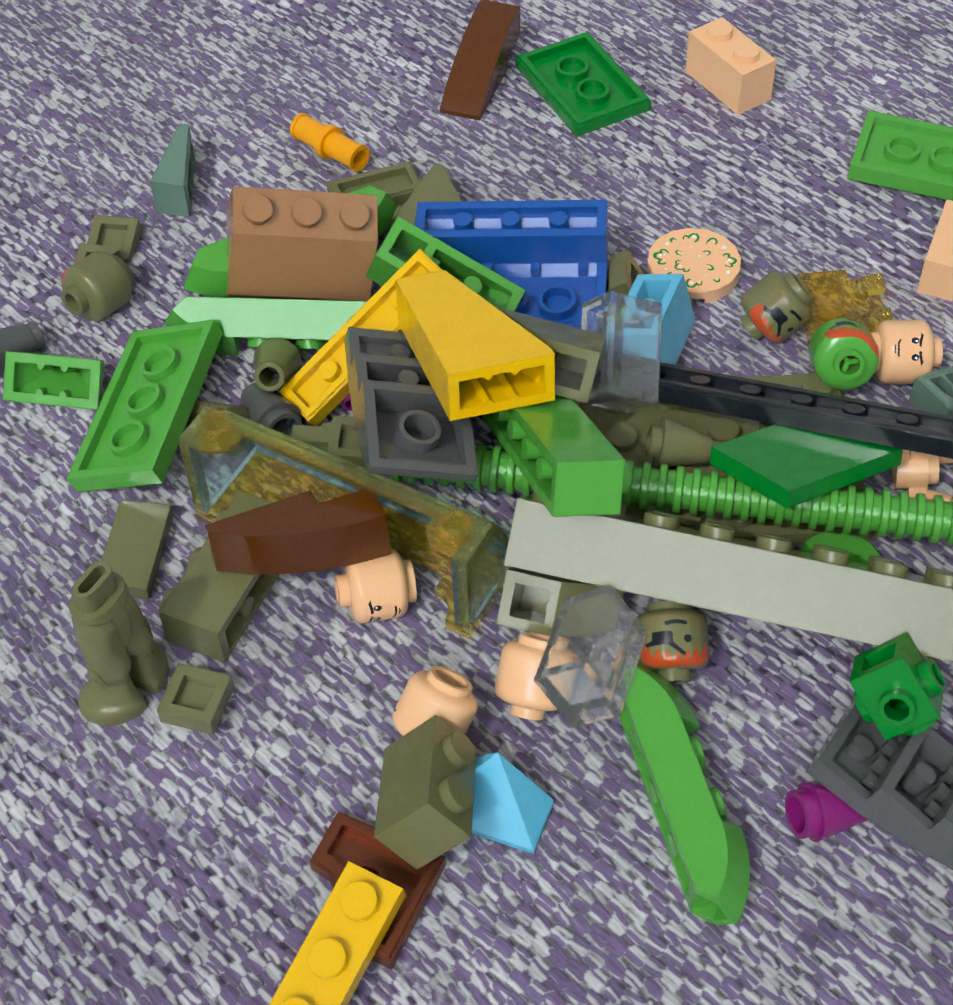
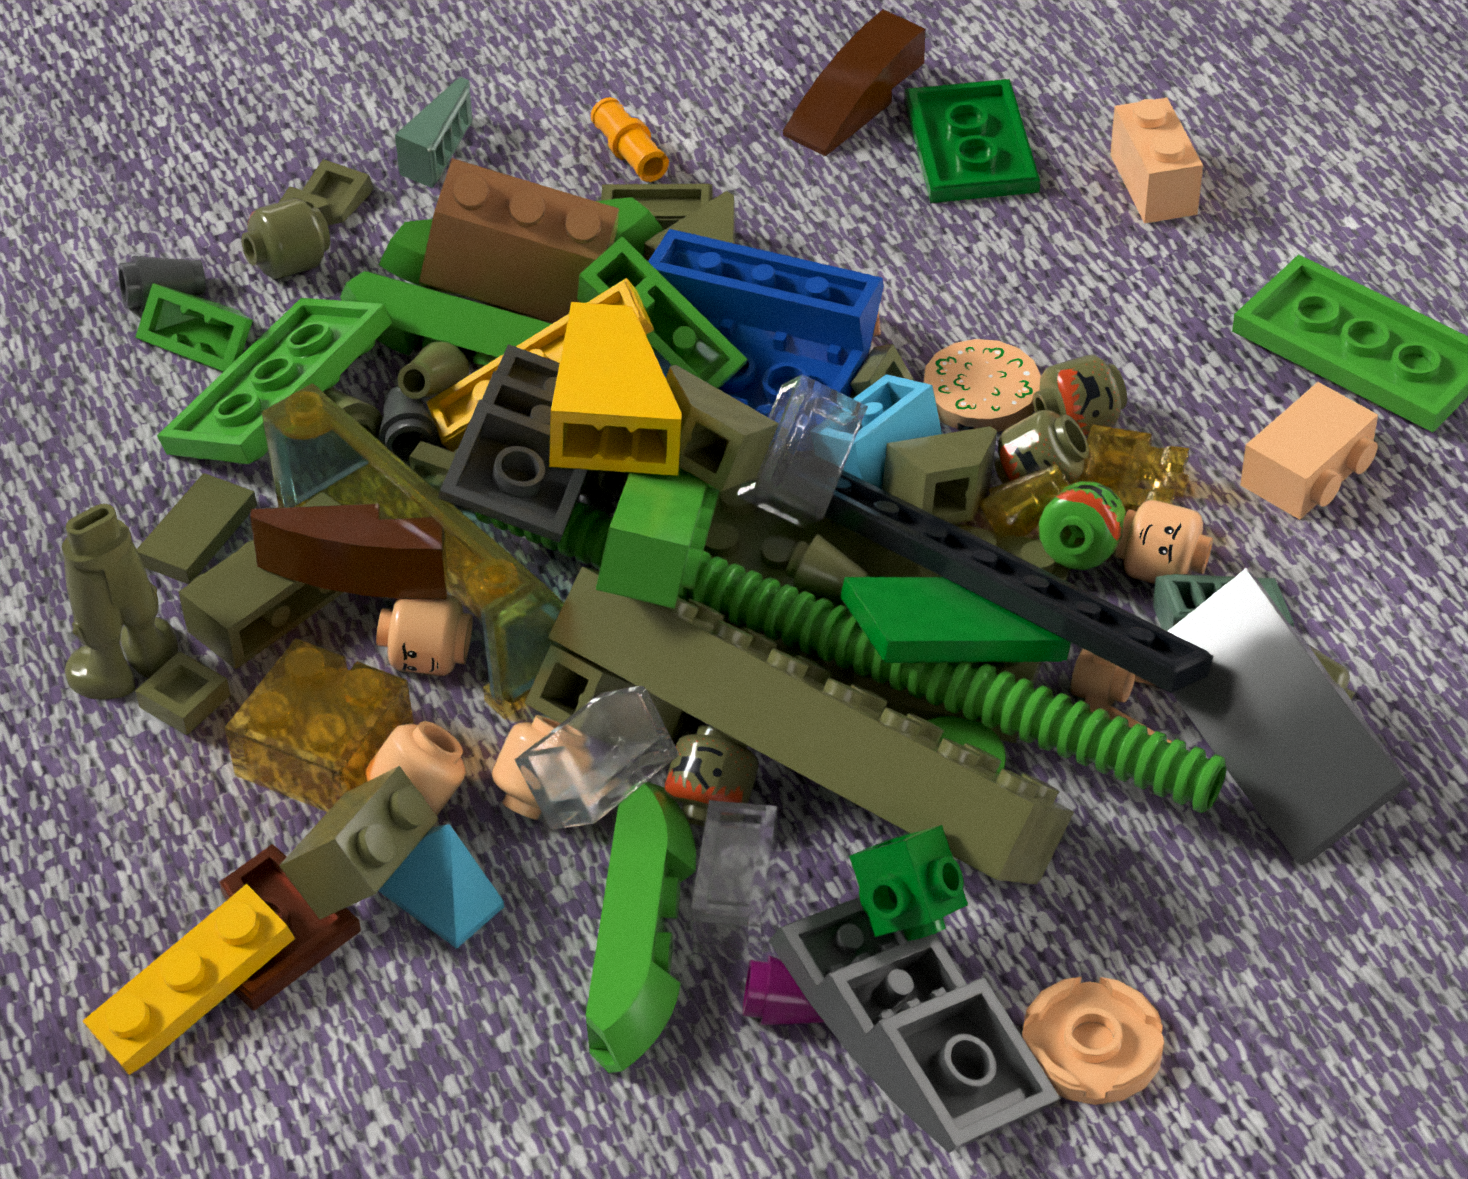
camera: 20 degrees right, 5 degrees down
(332, 696) = (315, 724): none -> clear yellow piece
(717, 340) = (942, 472): none -> olive slope
(743, 724) = (734, 881): none -> clear panel
(779, 248) = (1083, 390): none -> olive head
(784, 347) = (1019, 503): none -> clear yellow cone

